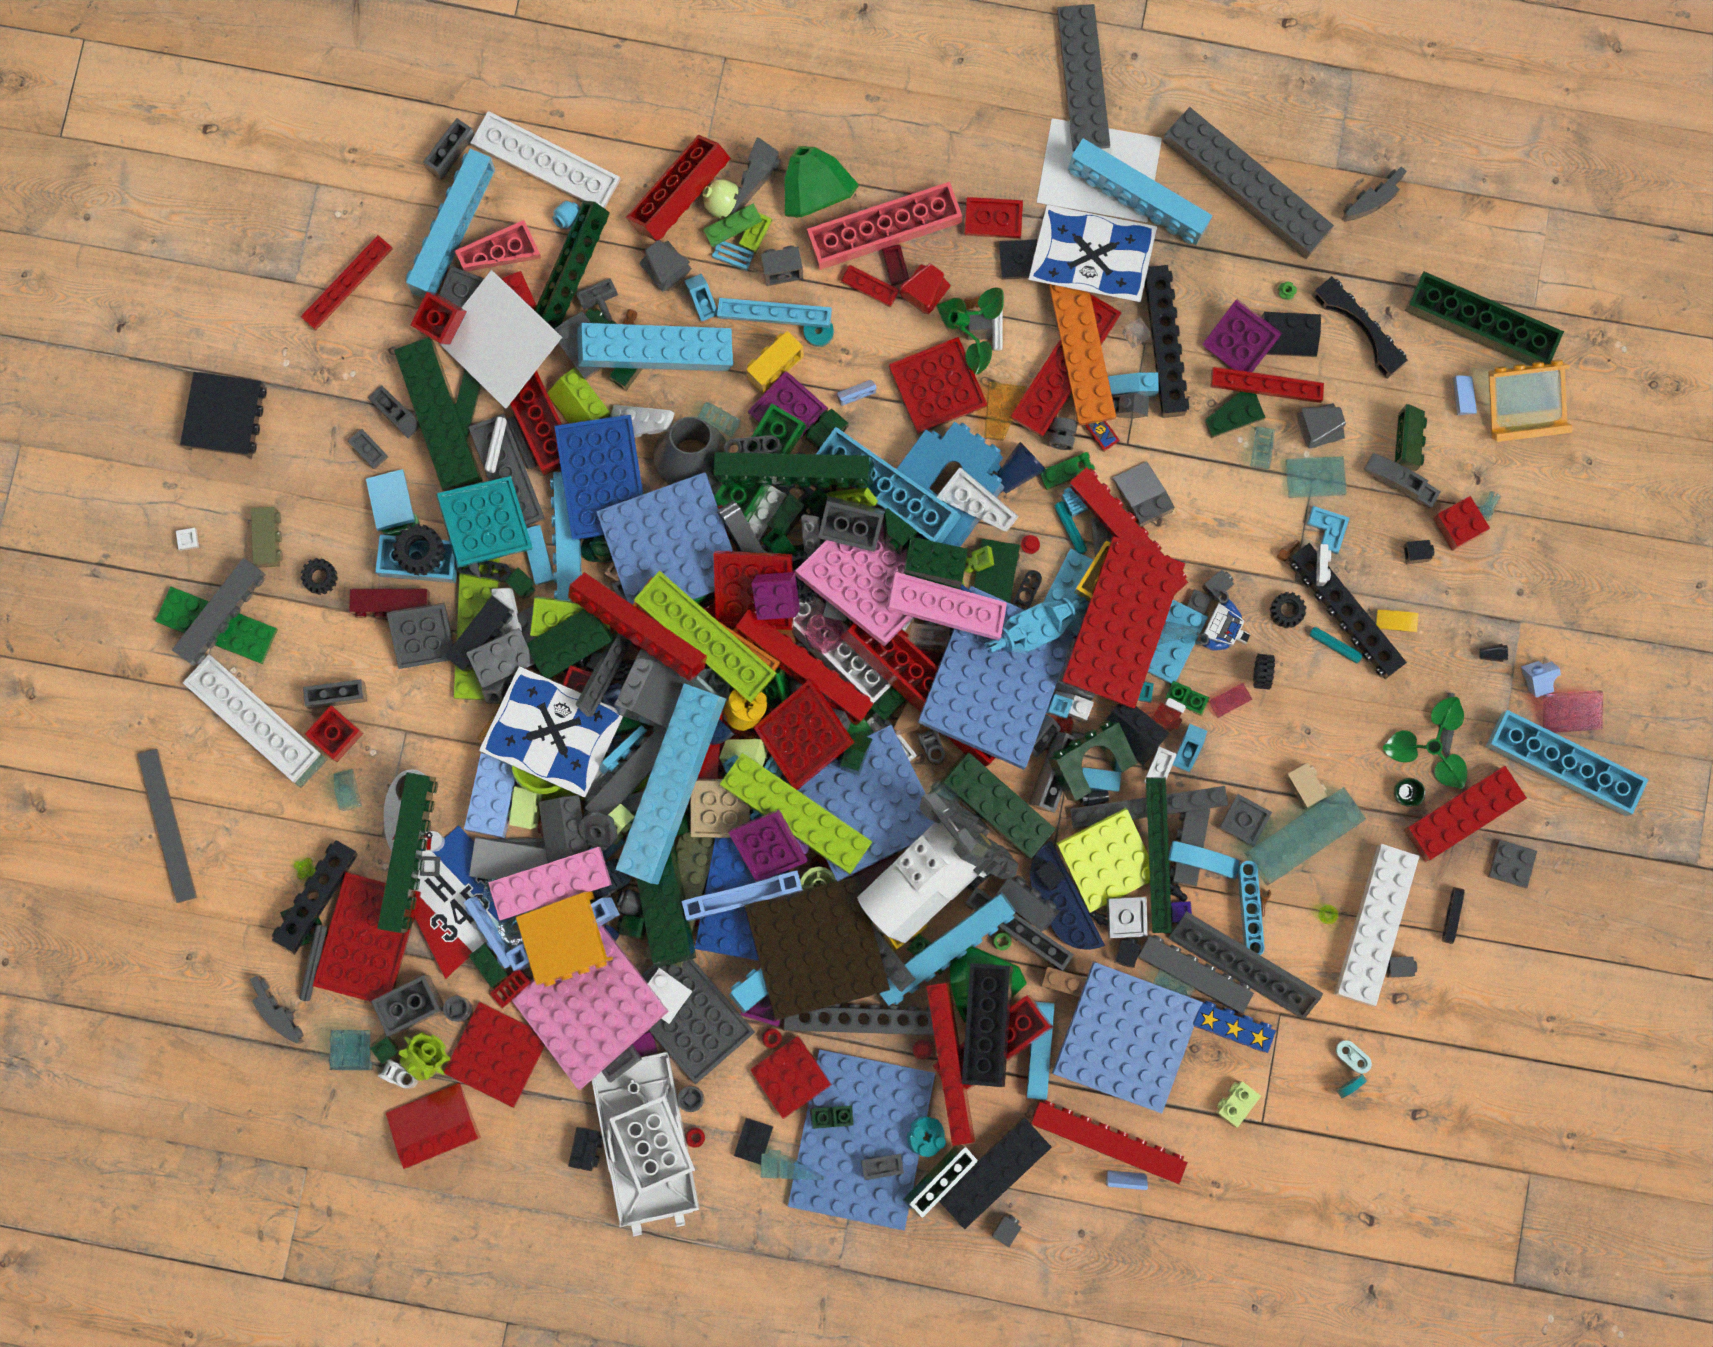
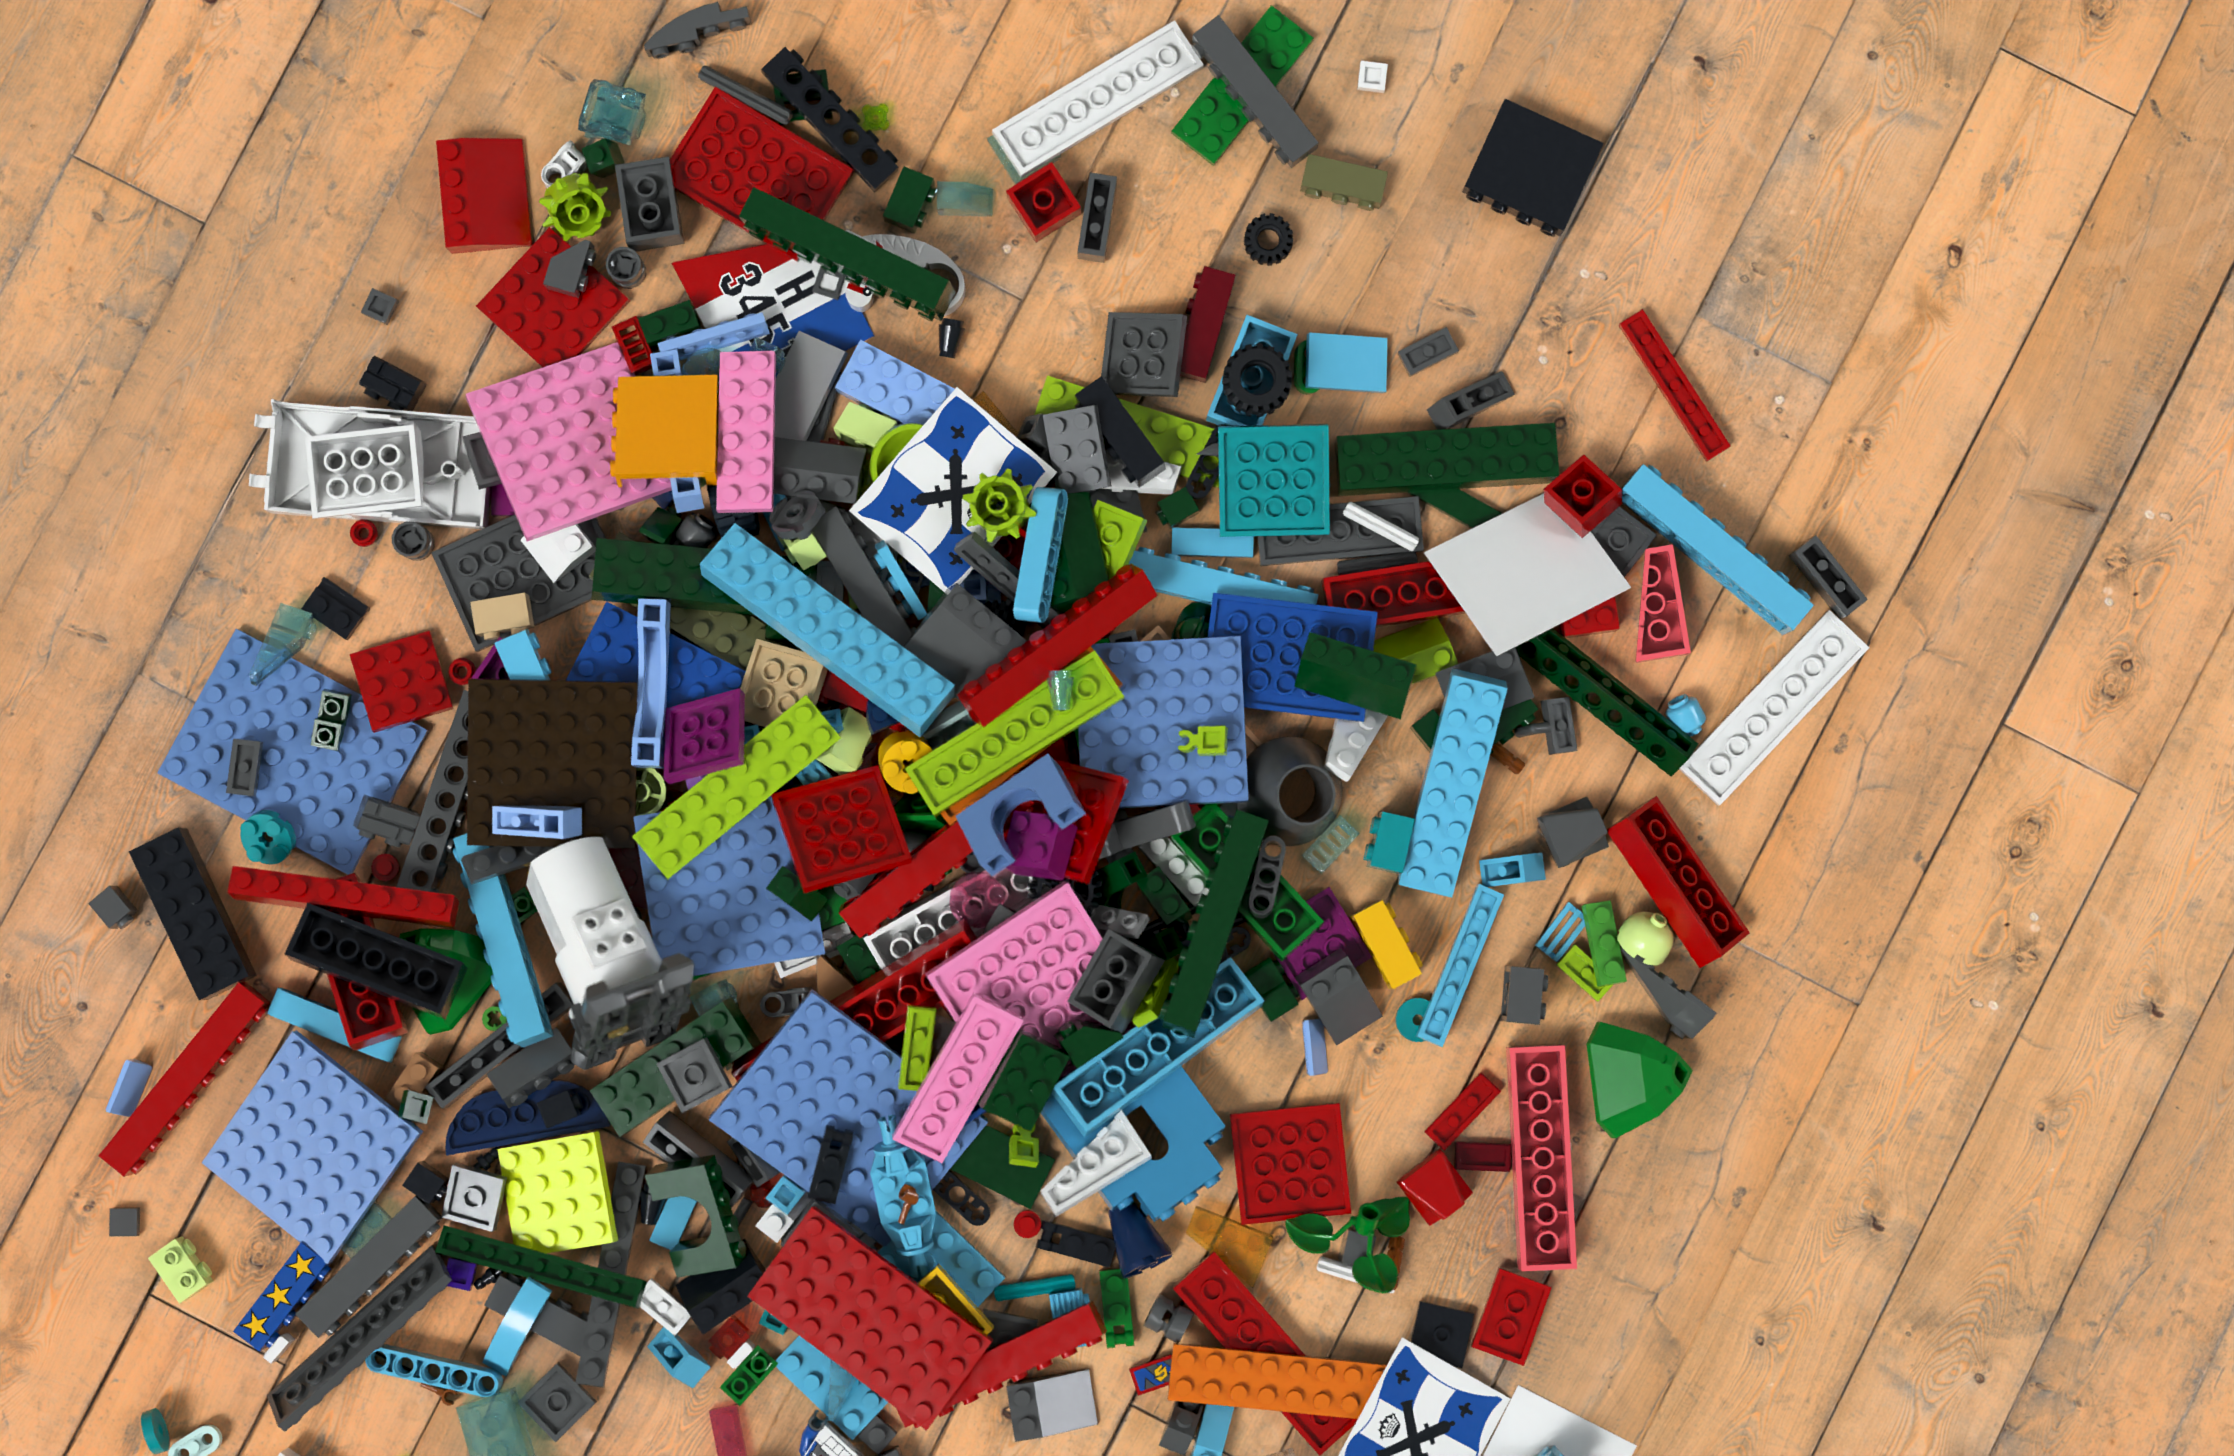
camera: 110 degrees right, 5 degrees up
(356, 826) = (910, 200): none -> dark green brick
(445, 771) = (950, 337): none -> black cone
(470, 1047) = (569, 269): none -> dark grey slope
(532, 1175) = (379, 306): none -> dark grey plate
(541, 693) = (984, 500): none -> lime brick
(578, 656) = (1040, 555): none -> medium azure beam
(601, 426) = (1355, 675): none -> dark green slope
(666, 612) = (1060, 688): none -> clear light blue cone
(673, 507) = (1208, 741): none -> lime plate
(706, 379) = (1389, 842): none -> teal brick
(724, 1018) = (502, 615): none -> tan brick
(733, 605) = (985, 819): none -> medium blue arch
(817, 384) = (1338, 996): none -> dark grey slope
(859, 943) = (537, 821): none -> light blue slope
(890, 1056) = (386, 820): none -> dark grey brick
(935, 642) = (916, 1046): none -> lime tile
(940, 1180) = (201, 836): brick -> none
(998, 785) = (694, 1075): none -> dark grey plate
(1030, 679) = (830, 1165): none -> black plate
(1033, 507) = (1077, 1243): none -> black plate
(1036, 619) = (910, 1197): none -> dark orange hand
(1078, 971) = (415, 1107): none -> plate
(1218, 1155) = (124, 1222): none -> dark grey tile
(1263, 1017) = (278, 1347): none -> white tile

